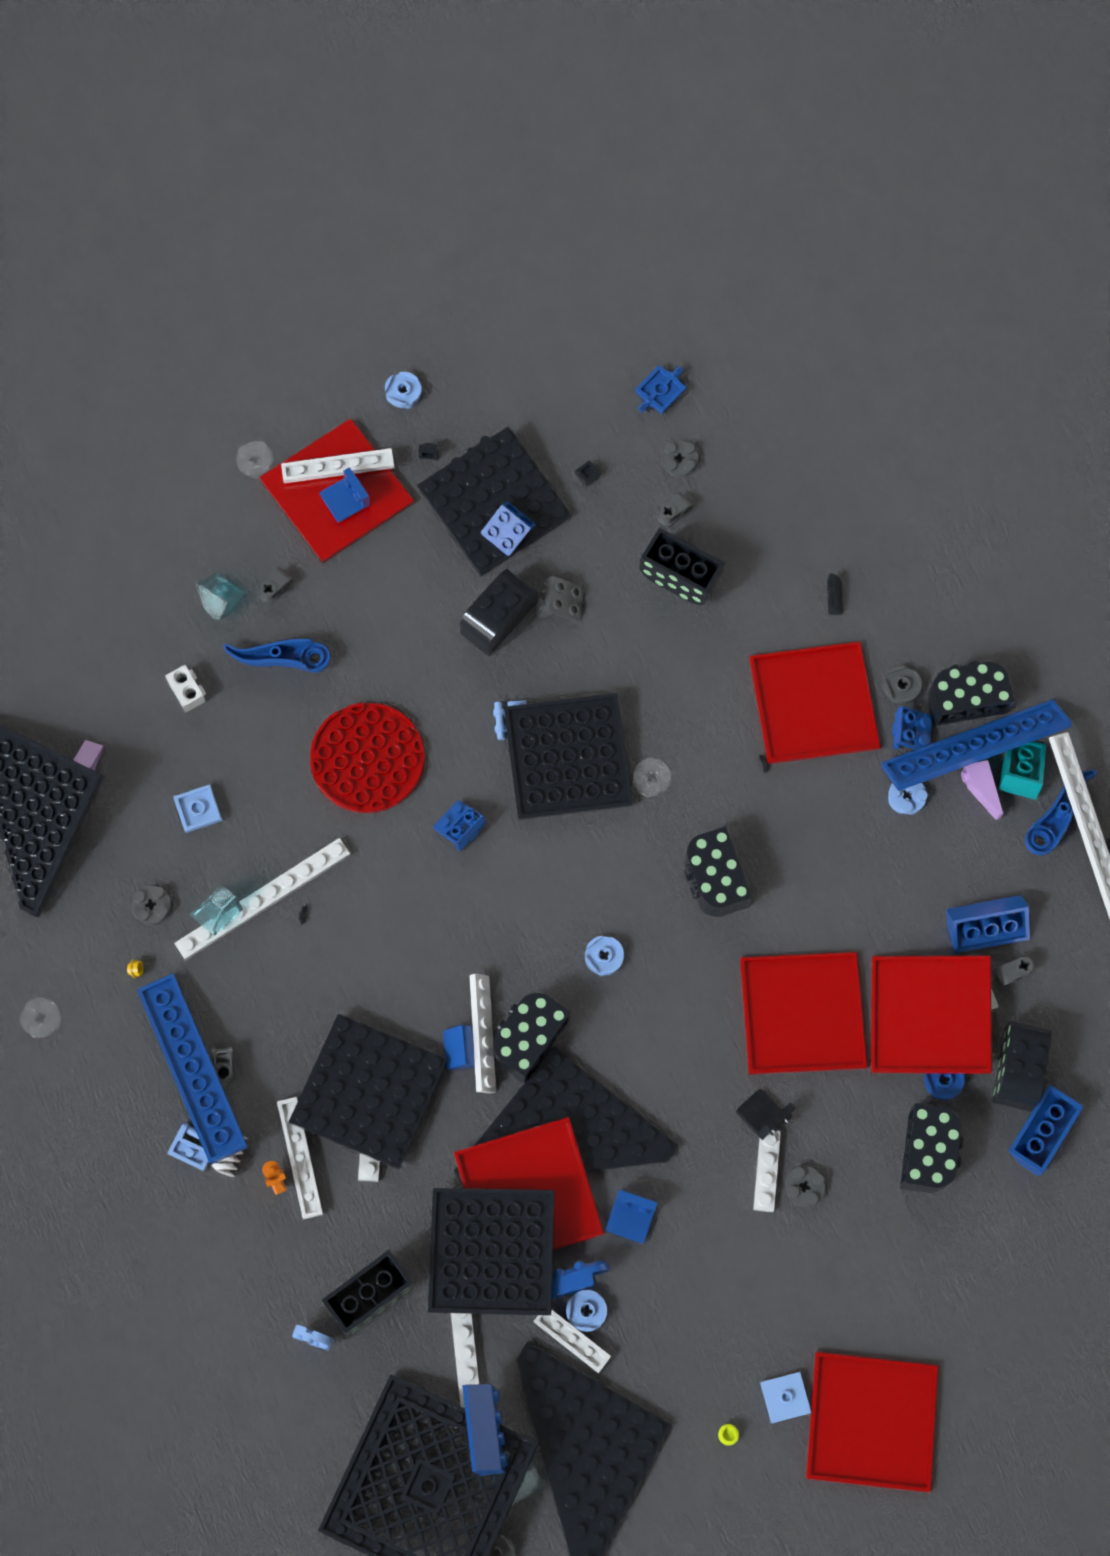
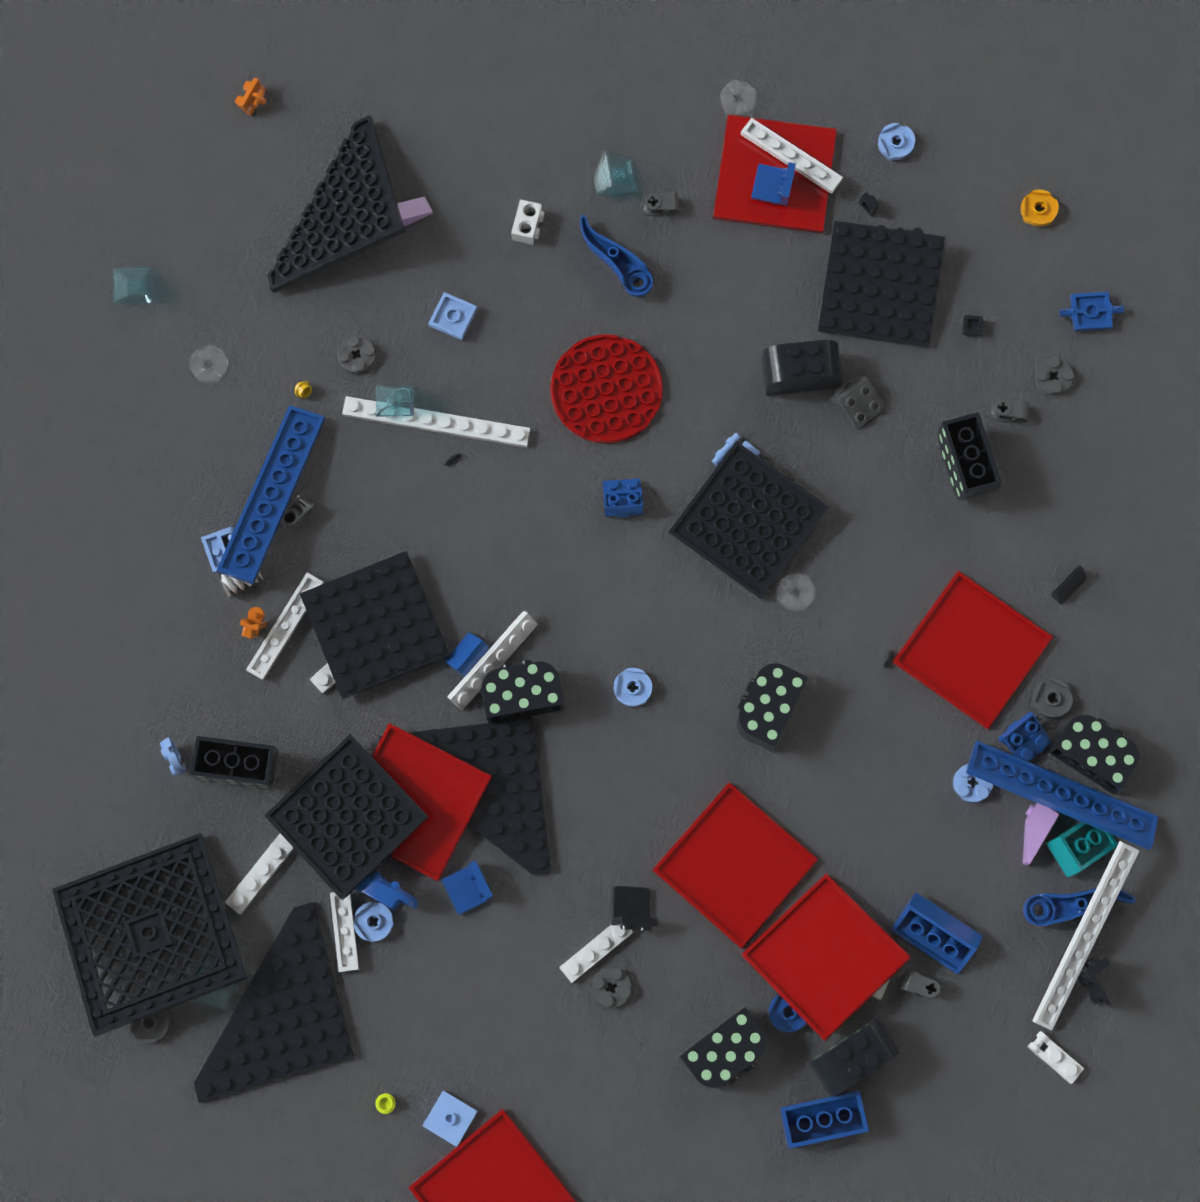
camera: 50 degrees right, 5 degrees up
(484, 1429) = (217, 931): blue slope -> none
(507, 528) = (869, 312): bracket -> none
(552, 339) = (1031, 215): none -> light orange plate

